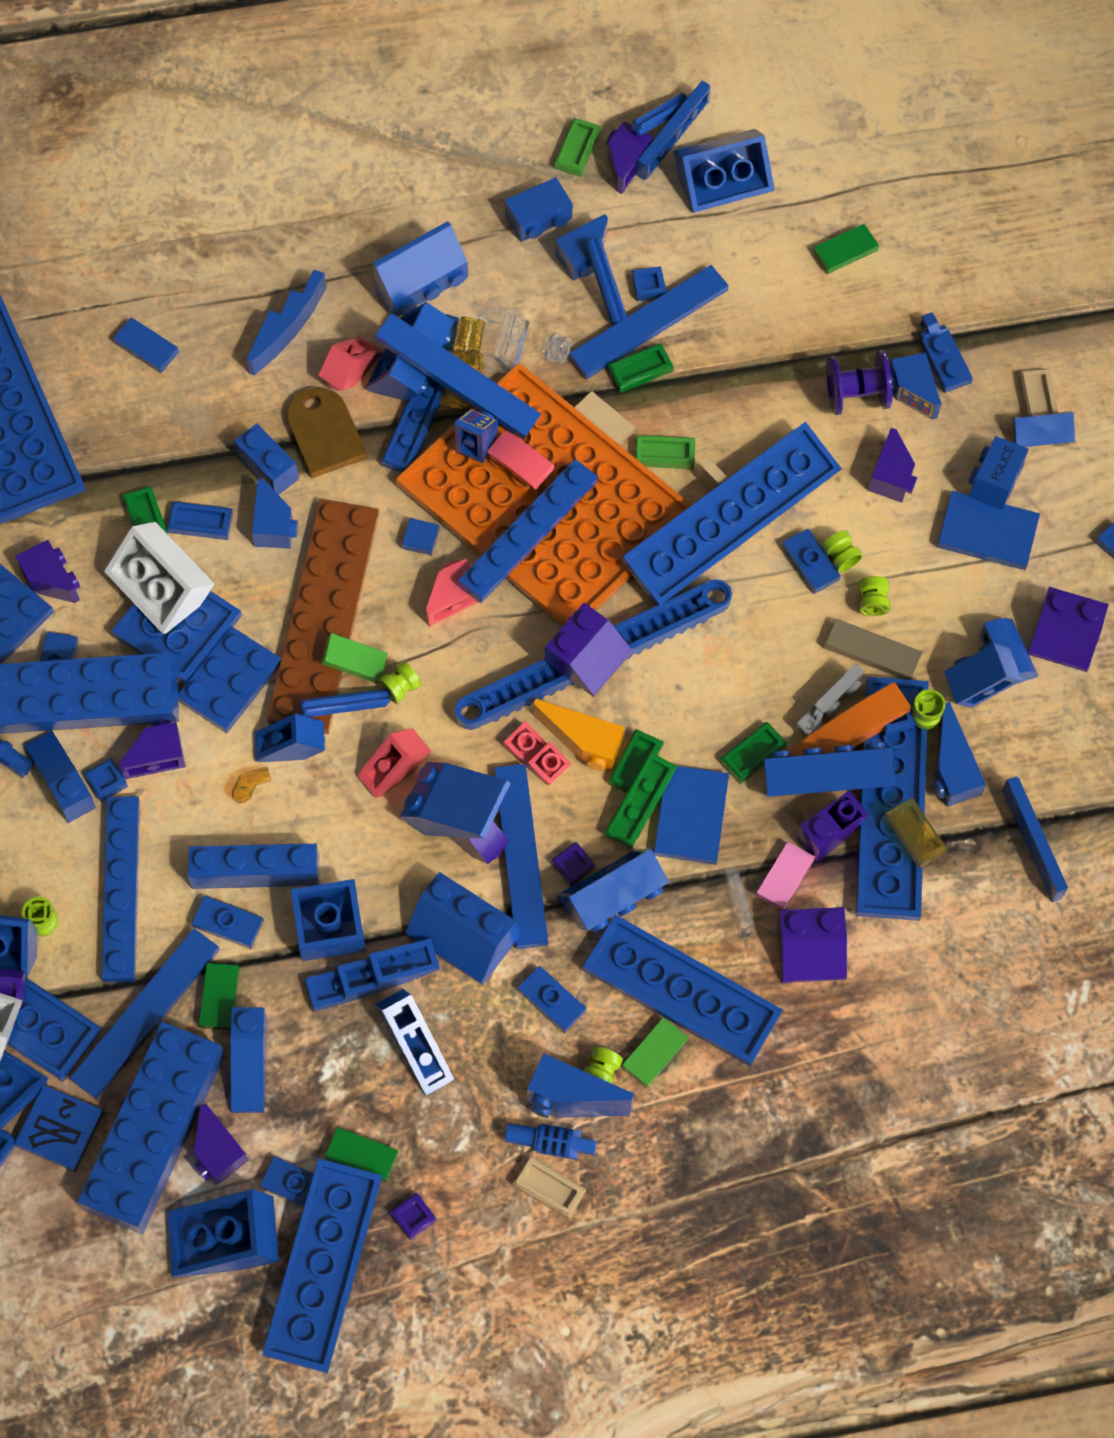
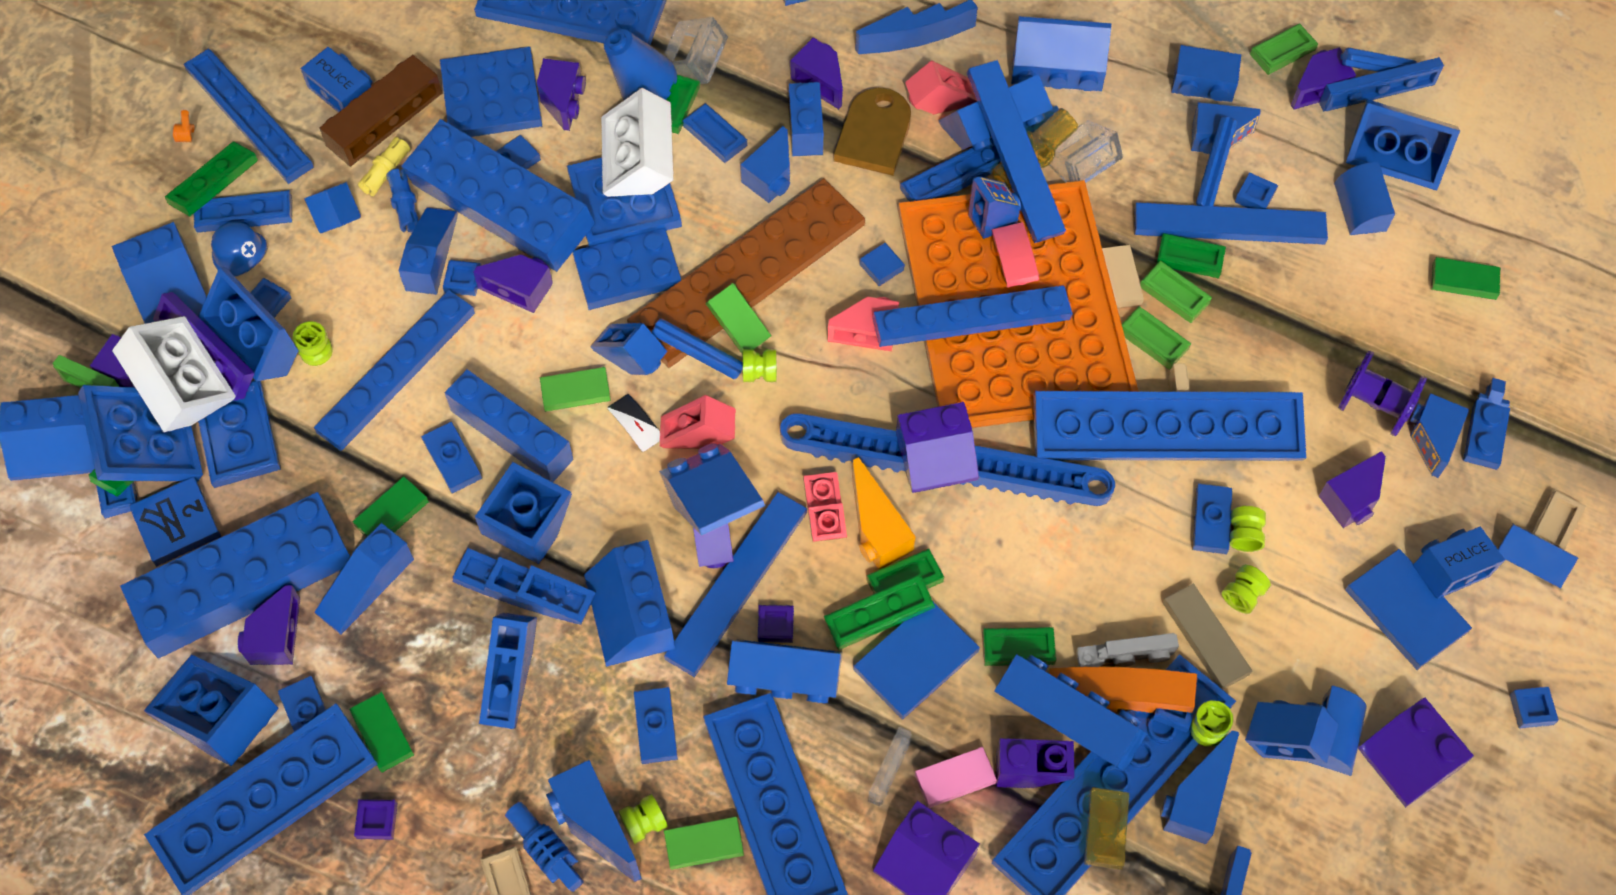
camera: 40 degrees right, 5 degrees down
(105, 512) = (638, 65): none -> blue cone
(135, 458) = (704, 51): none -> clear tile
(144, 1014) = (326, 478): blue tile -> none
(241, 409) = (819, 64): none -> dark purple slope
(247, 783) = (567, 358): clear yellow arm -> none
(274, 801) = (575, 389): none -> bright green tile
(340, 793) = (635, 422): none -> sticker
(557, 348) = (1125, 184): clear plate -> none
(652, 404) = (1175, 292): none -> bright green tile
(731, 234) = (1365, 199): none -> blue brick

